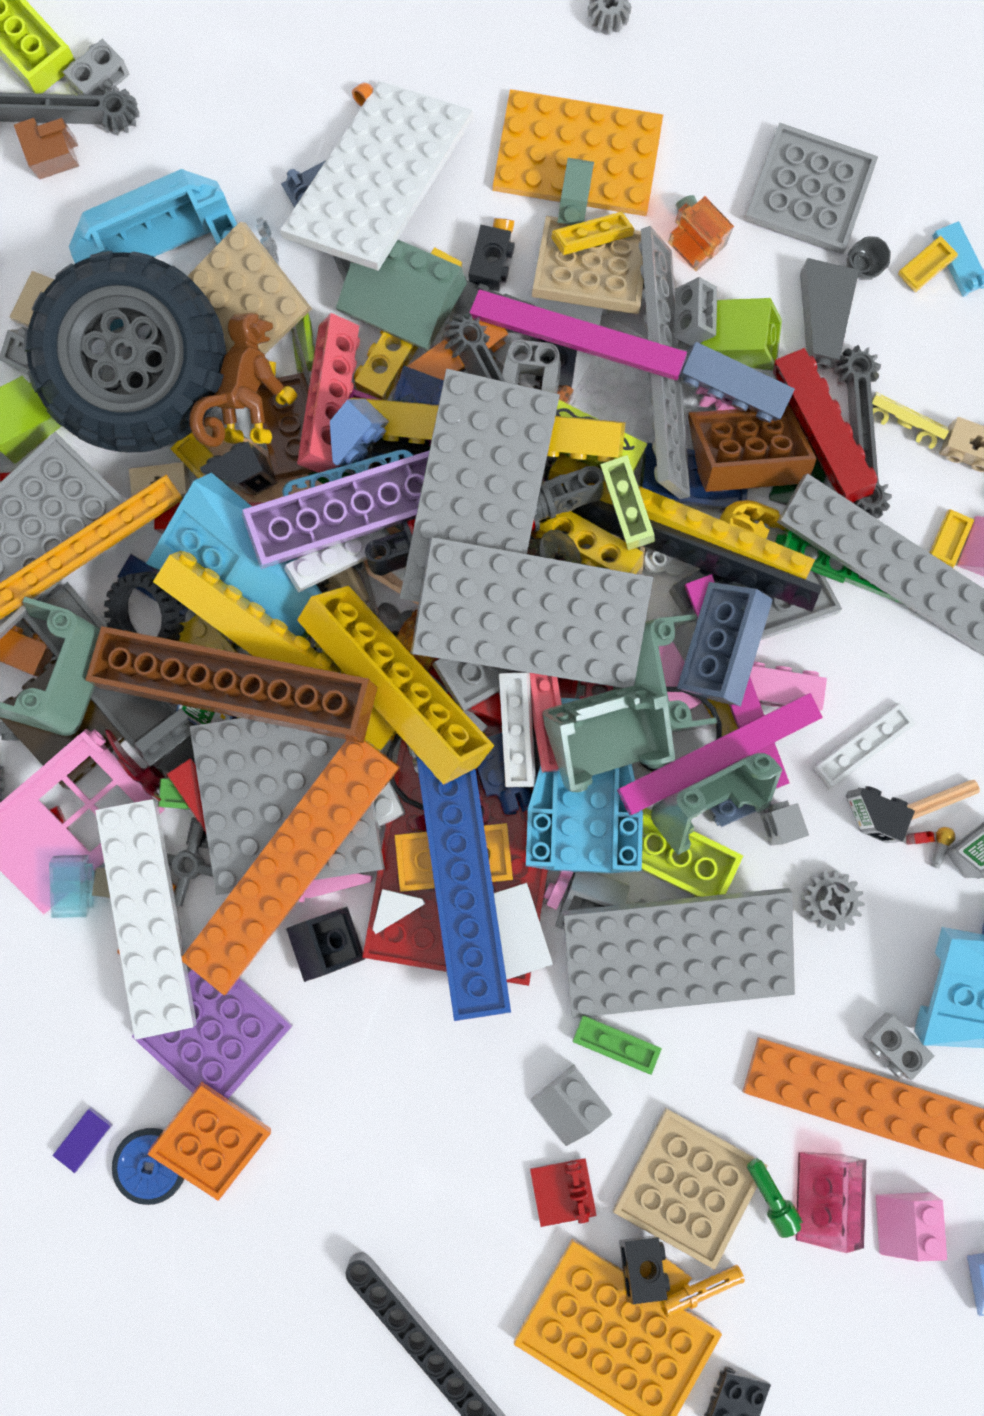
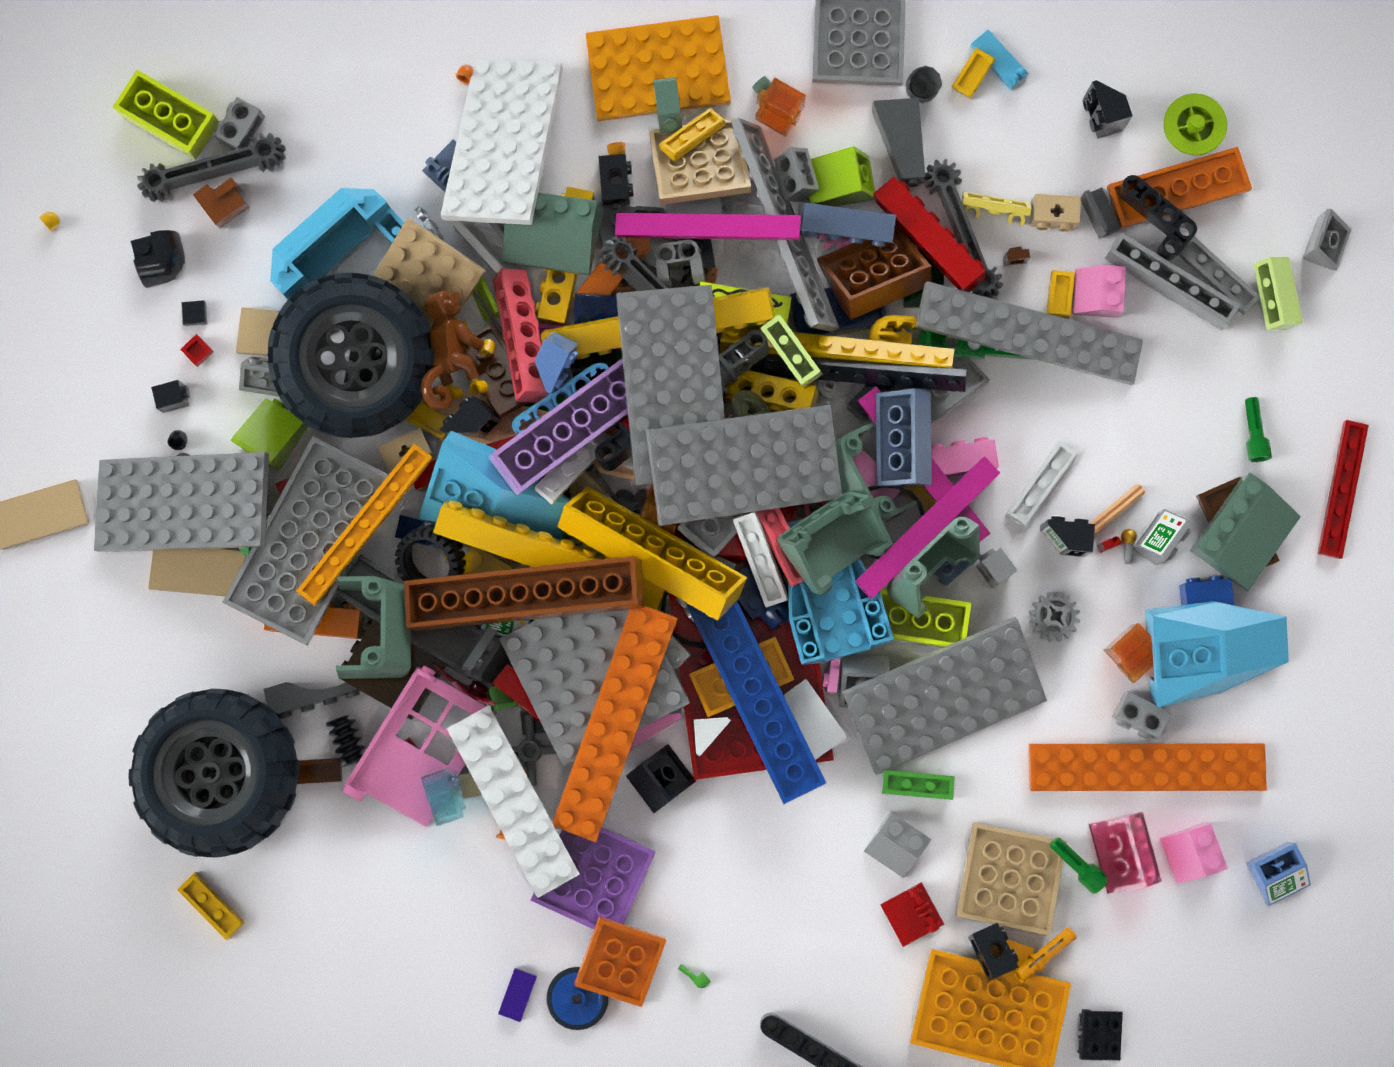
camera: 10 degrees left, 0 degrees up
(295, 1191) = (700, 981): none -> bright green hand
(313, 282) = (477, 247): none -> white tile
(911, 970) = (1132, 652): none -> clear orange plate
(914, 481) = (1016, 256): none -> reddish brown plate

